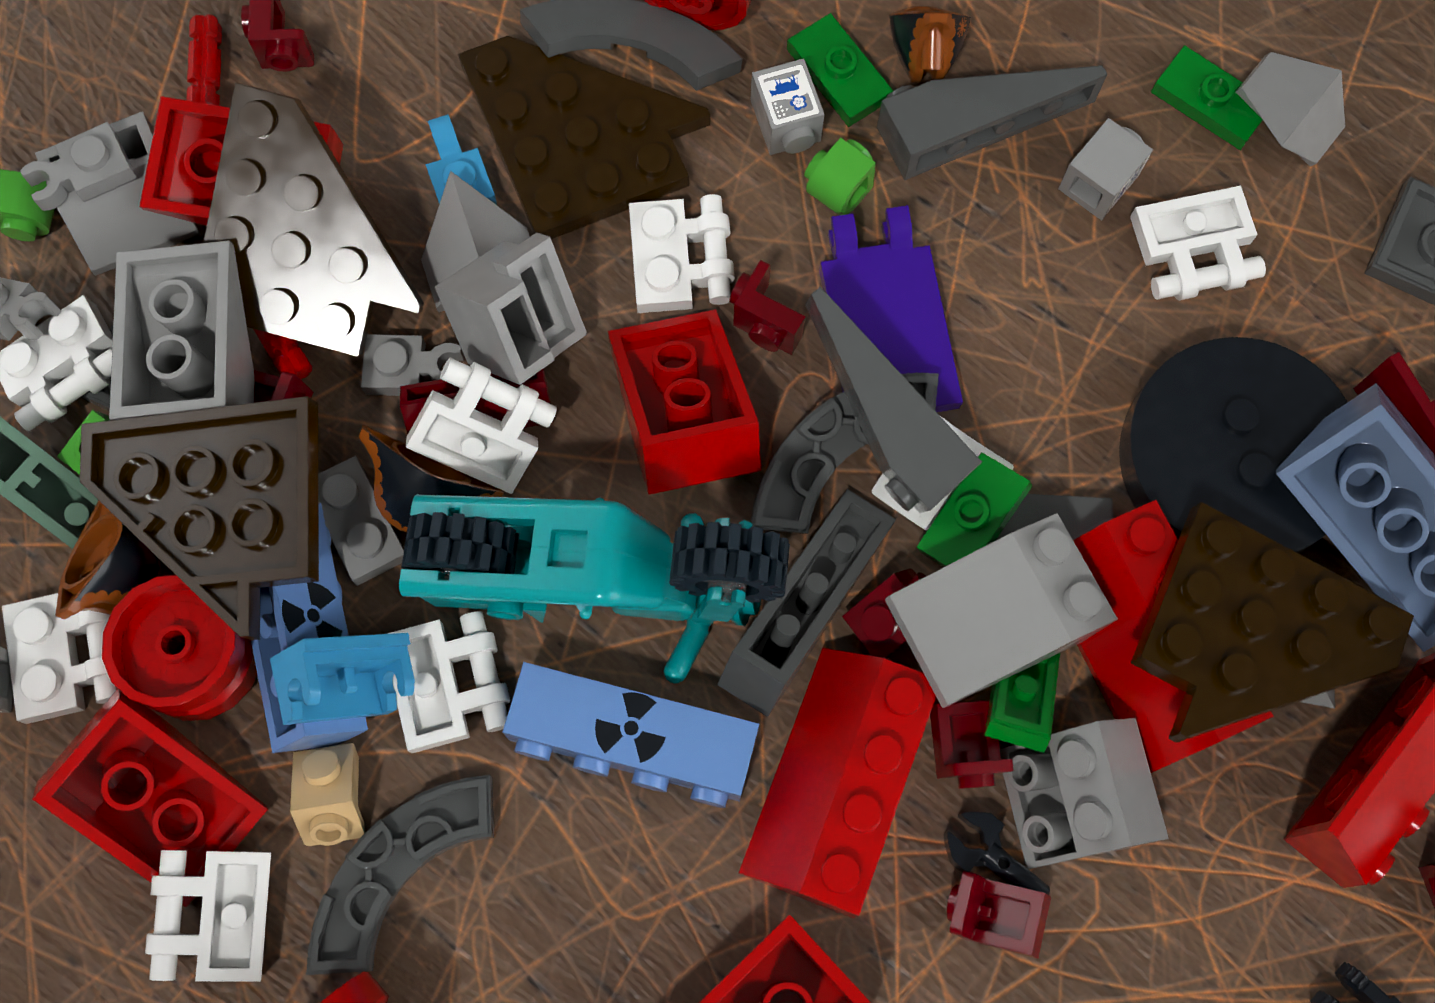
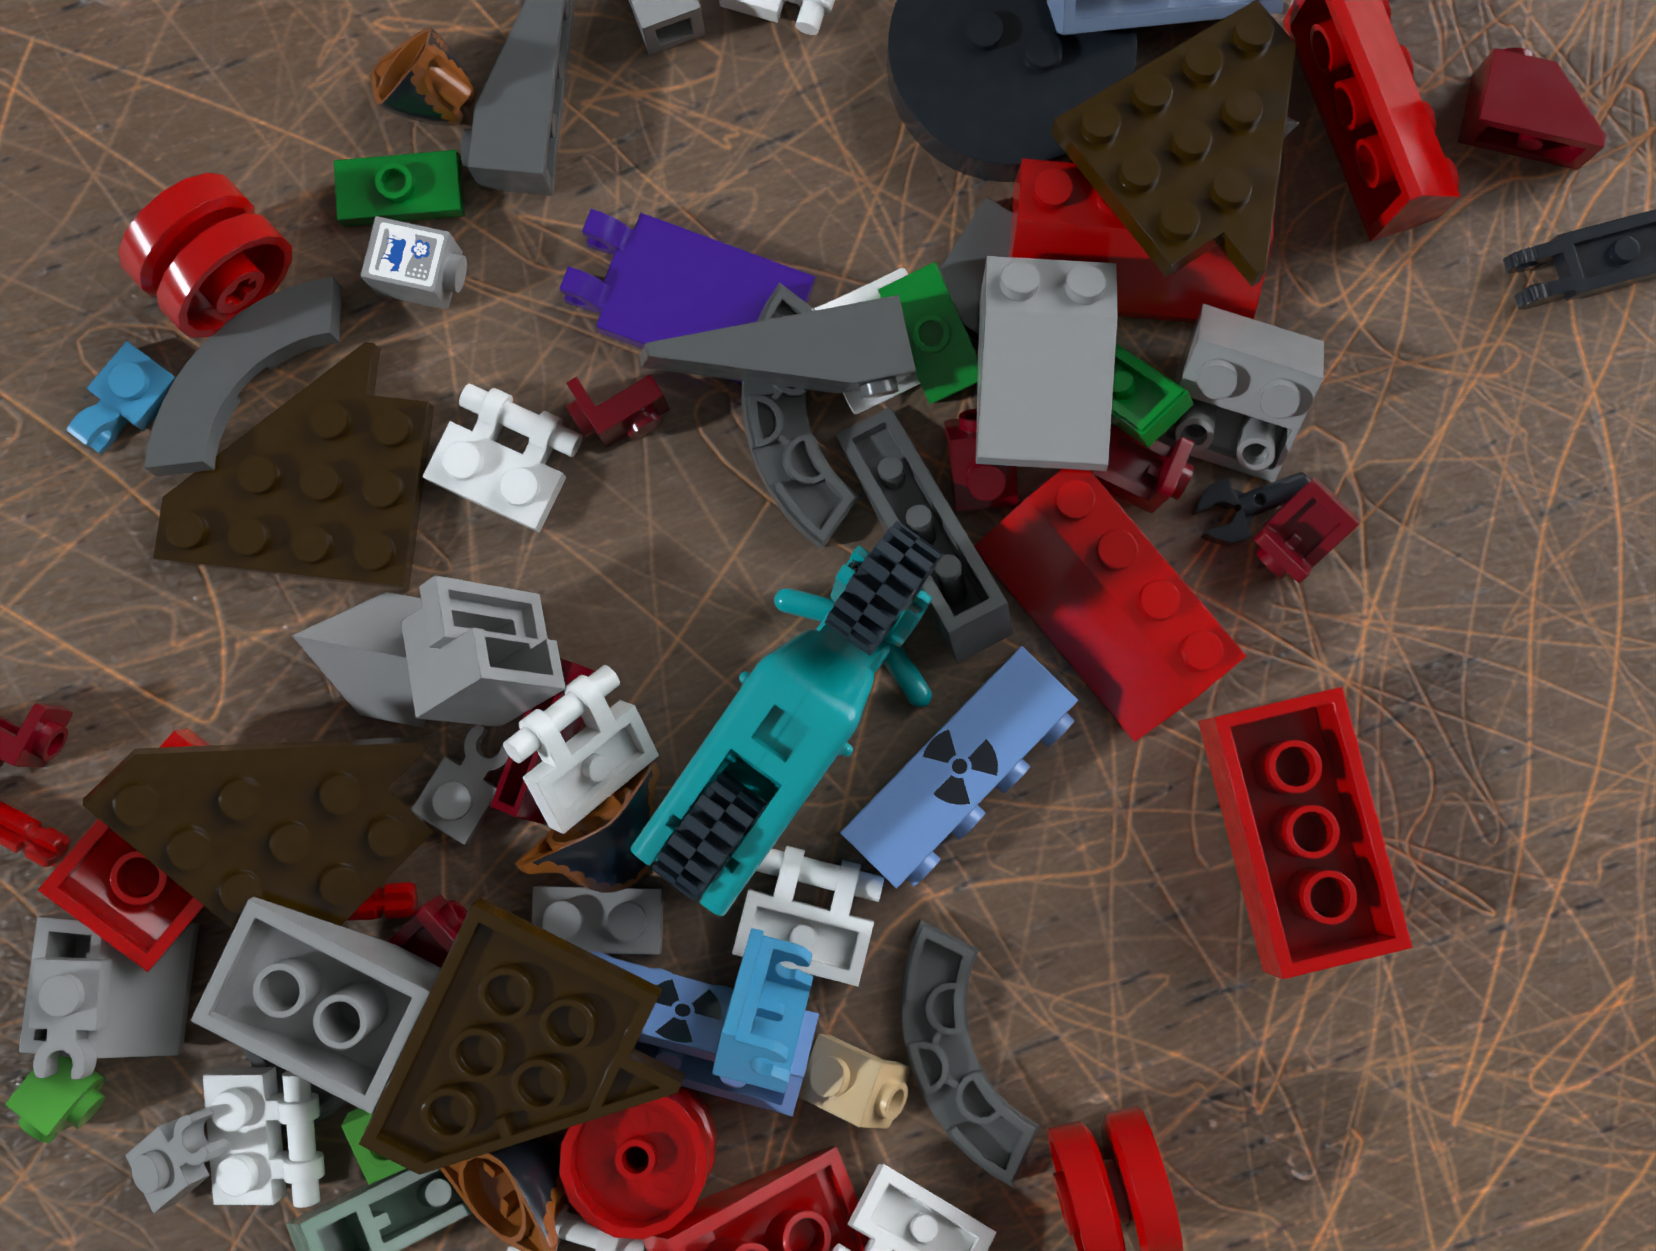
camera: 55 degrees left, 10 degrees up
(465, 165) = (276, 628): dark azure plate -> none
(685, 402) = (661, 537): red slope -> none
(841, 176) = (517, 254): bright green plate -> none

